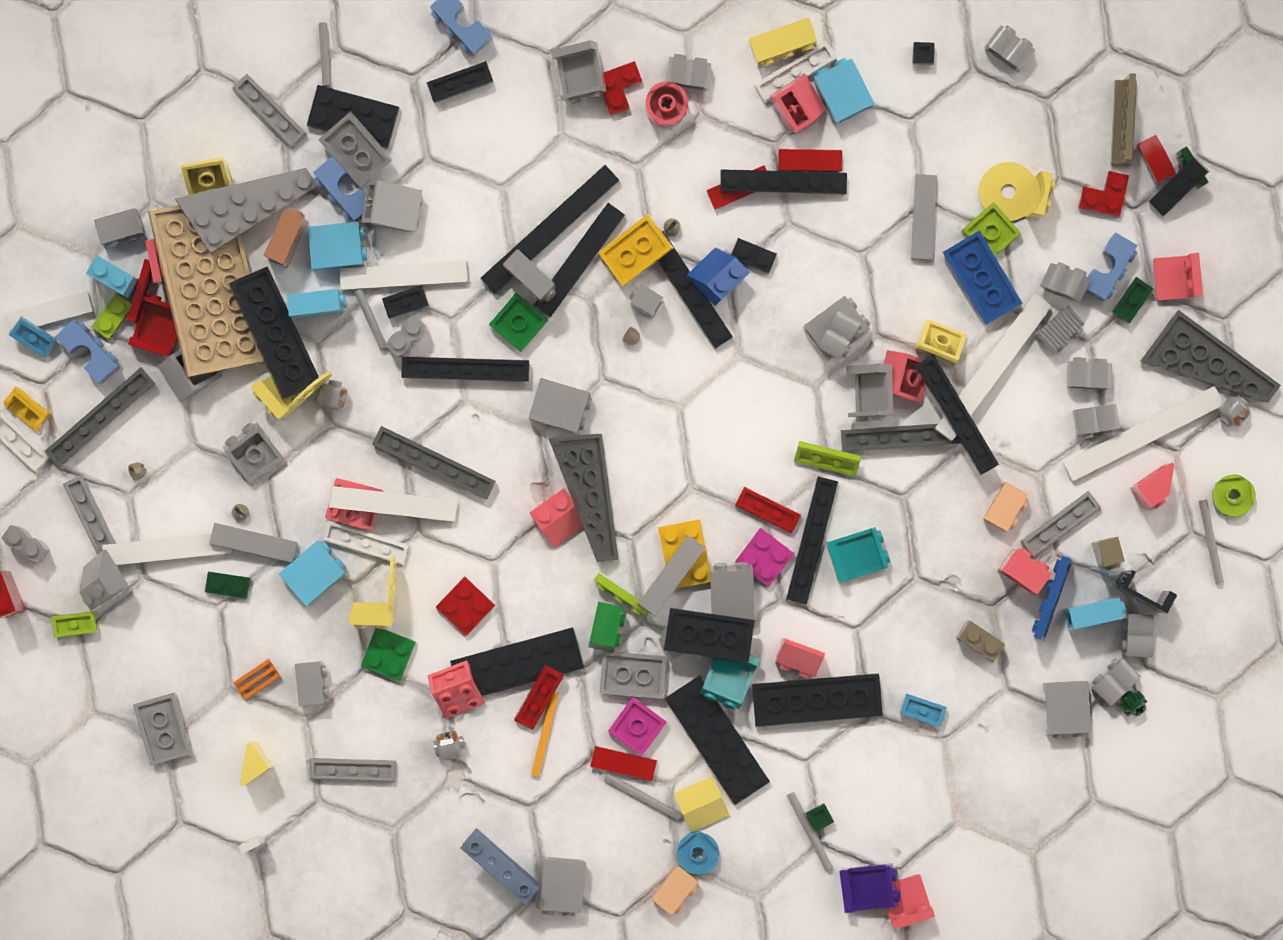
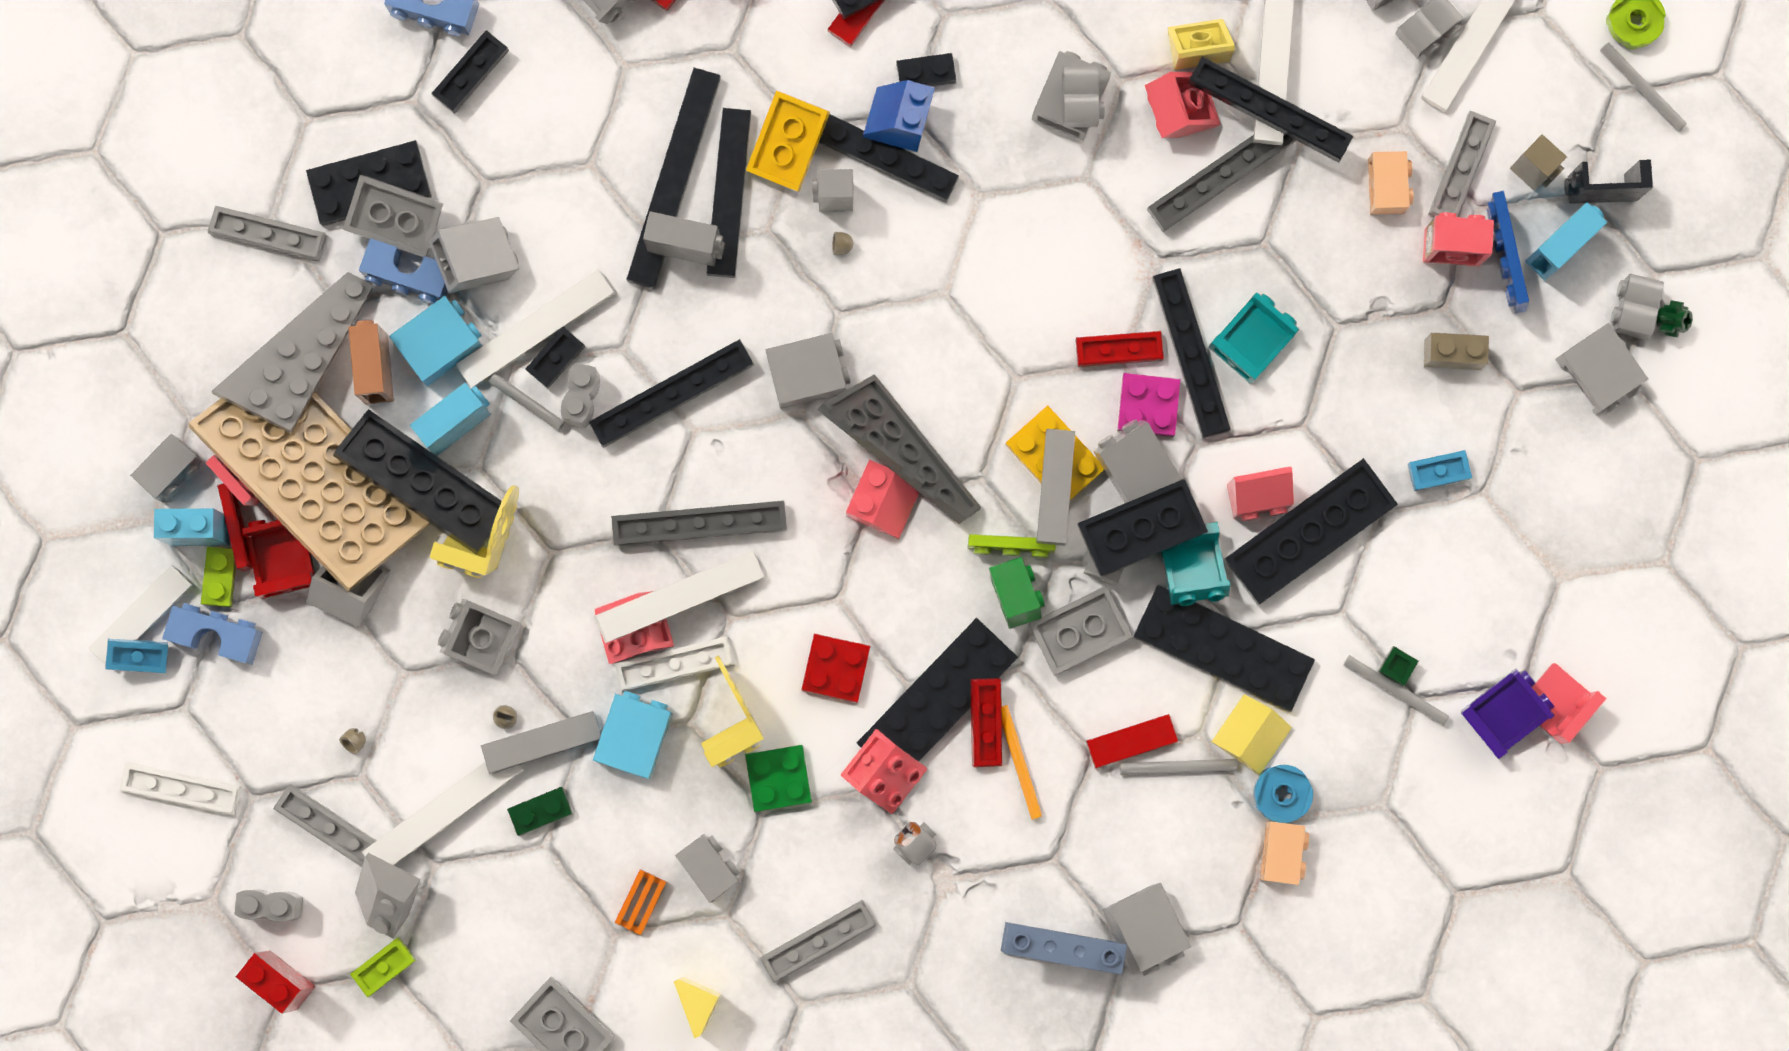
camera: 30 degrees left, 5 degrees down
(27, 408) = (178, 745): yellow hinge -> none
(100, 417) = (272, 703): dark grey plate -> none
(206, 175) = (232, 345): light yellow slope -> none
(324, 51) = (294, 131): light grey bar -> none
(332, 396) = (533, 515): light grey head -> none
(518, 322) = (701, 303): green plate -> none
(637, 726) = (1121, 687): dark pink plate -> none
(676, 229) = (819, 93): dark tan hinge -> none
(827, 458) = (1152, 248): lime plate -> none
(872, 391) = (1156, 139): light grey panel -> none
(1138, 635) = (1630, 239): light grey brick -> none
(1155, 486) = (1545, 58): coral slope -> none

